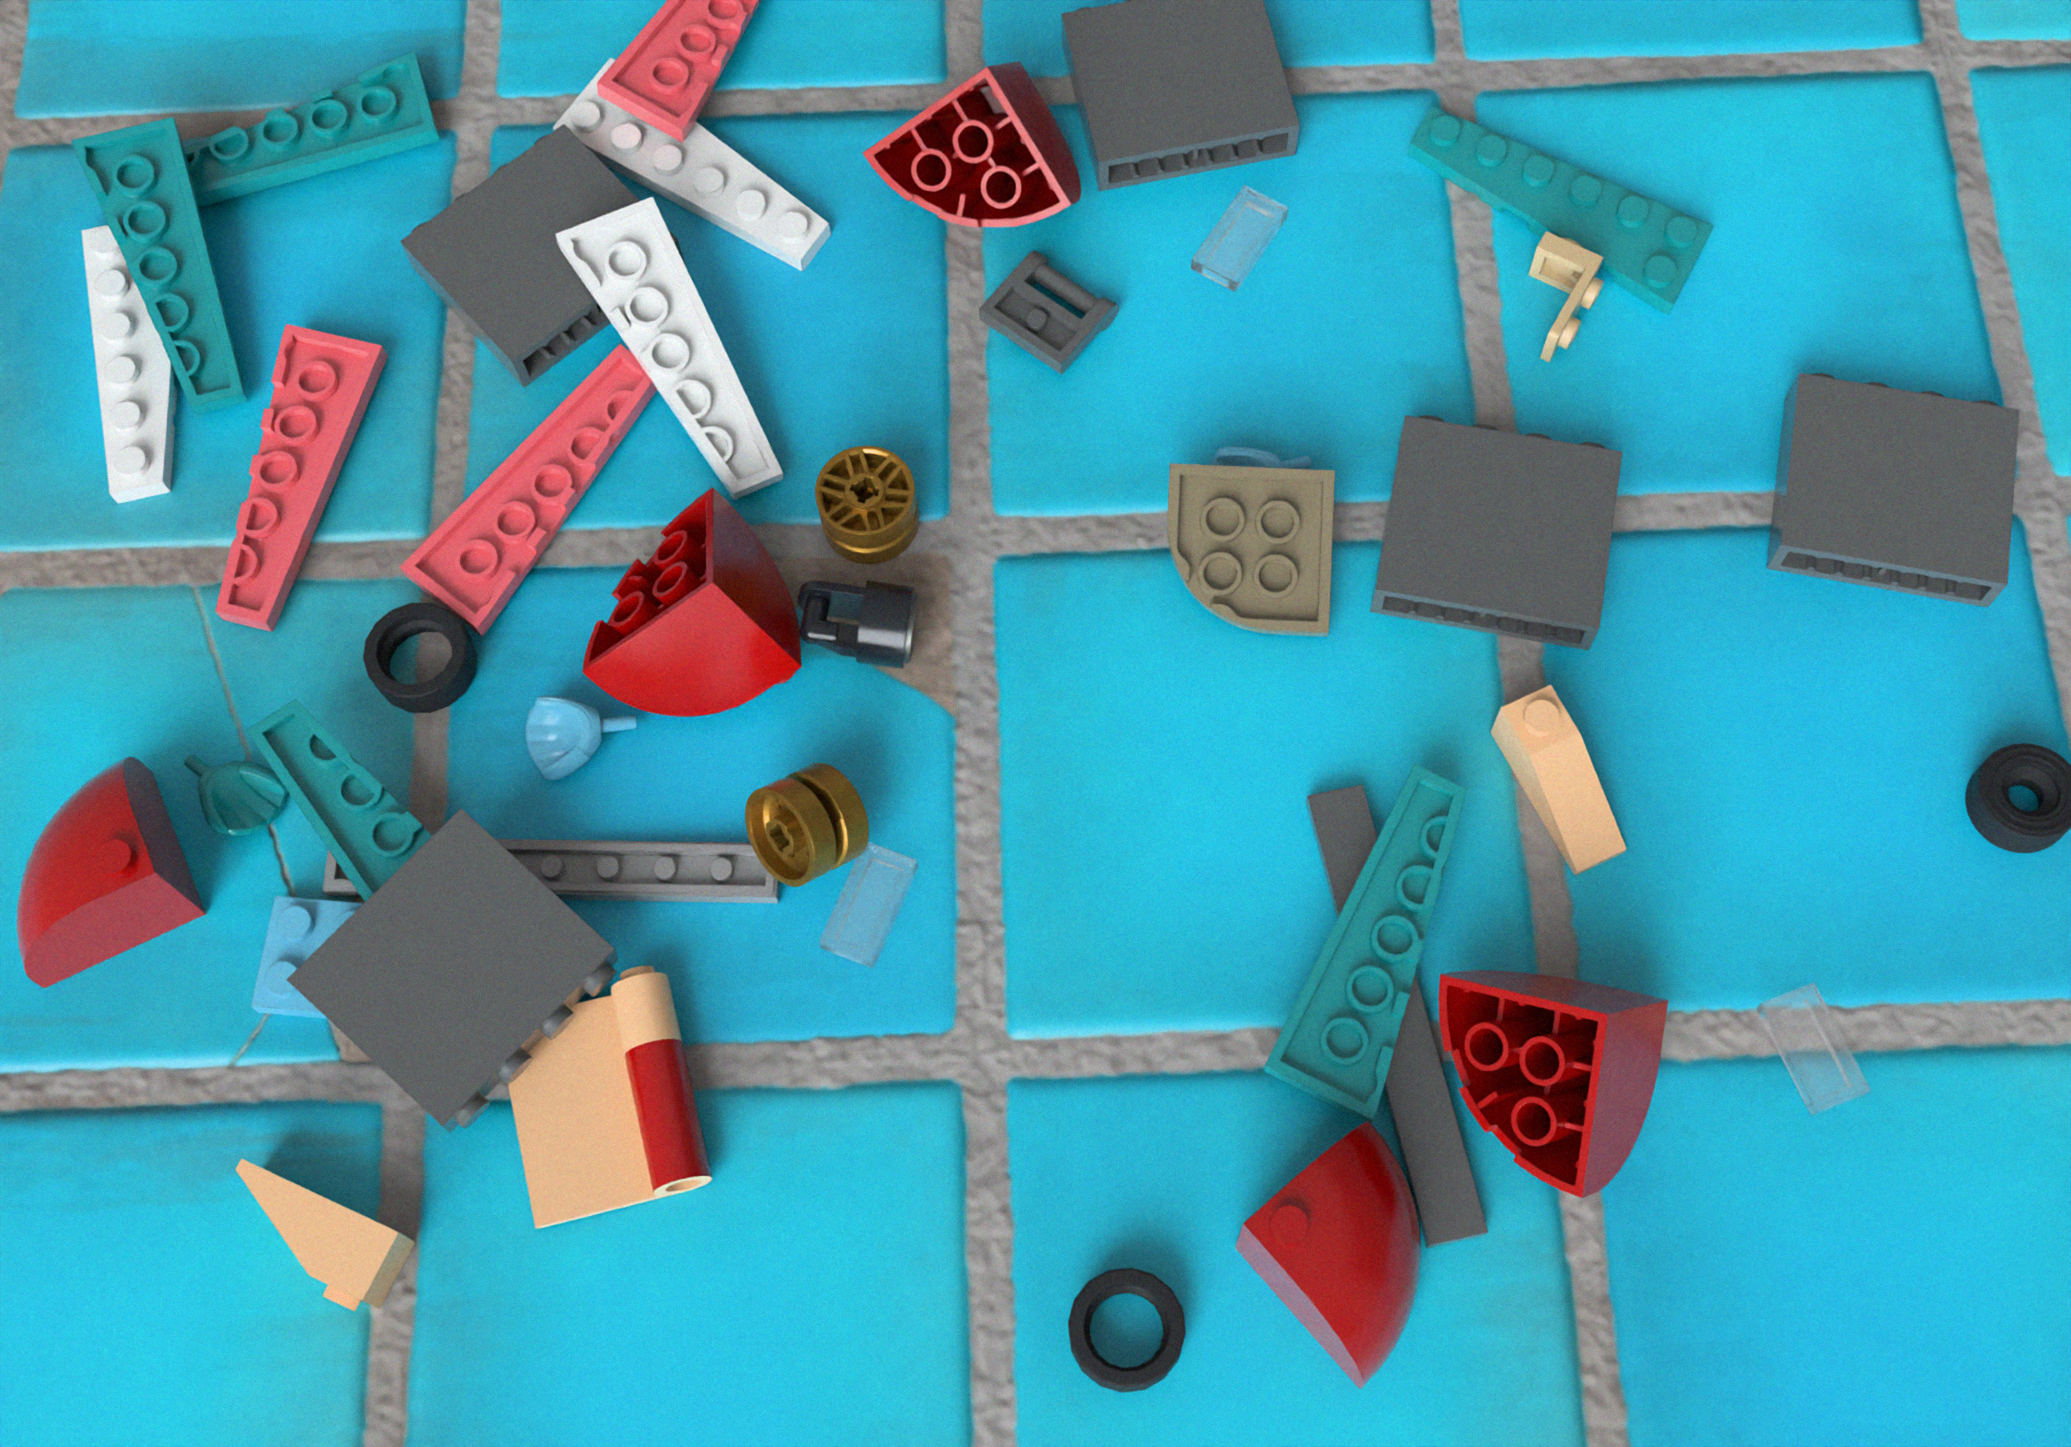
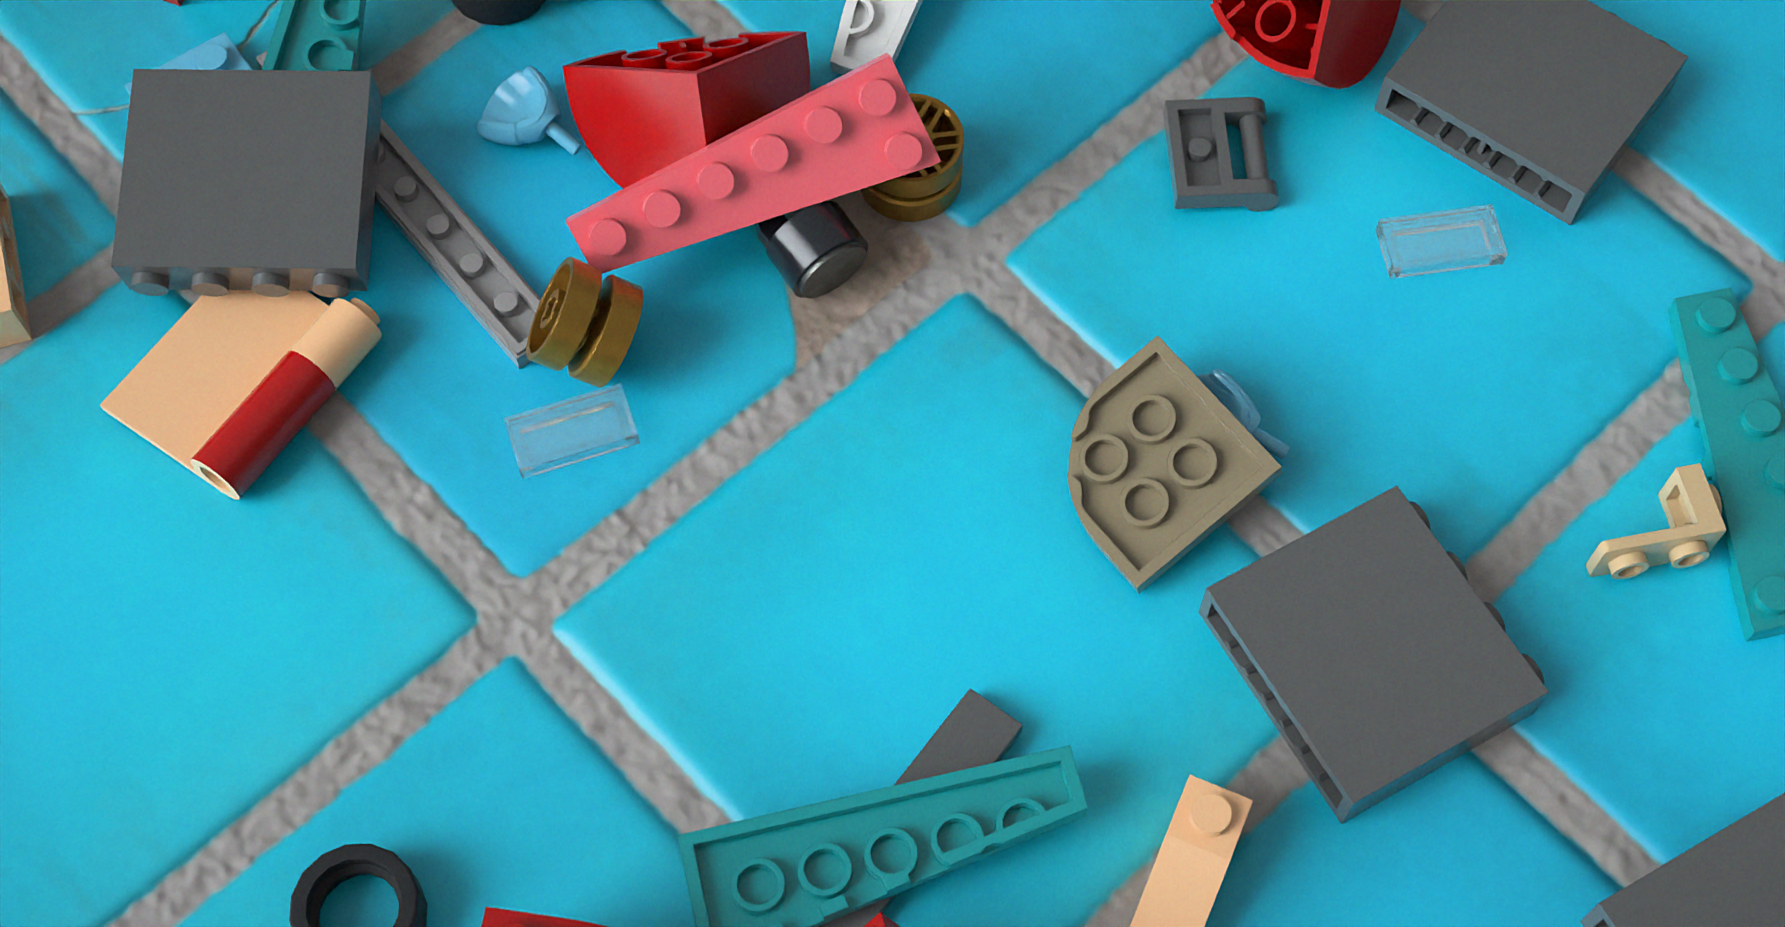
camera: 45 degrees right, 5 degrees down
(820, 577) = (801, 154): none -> coral wing

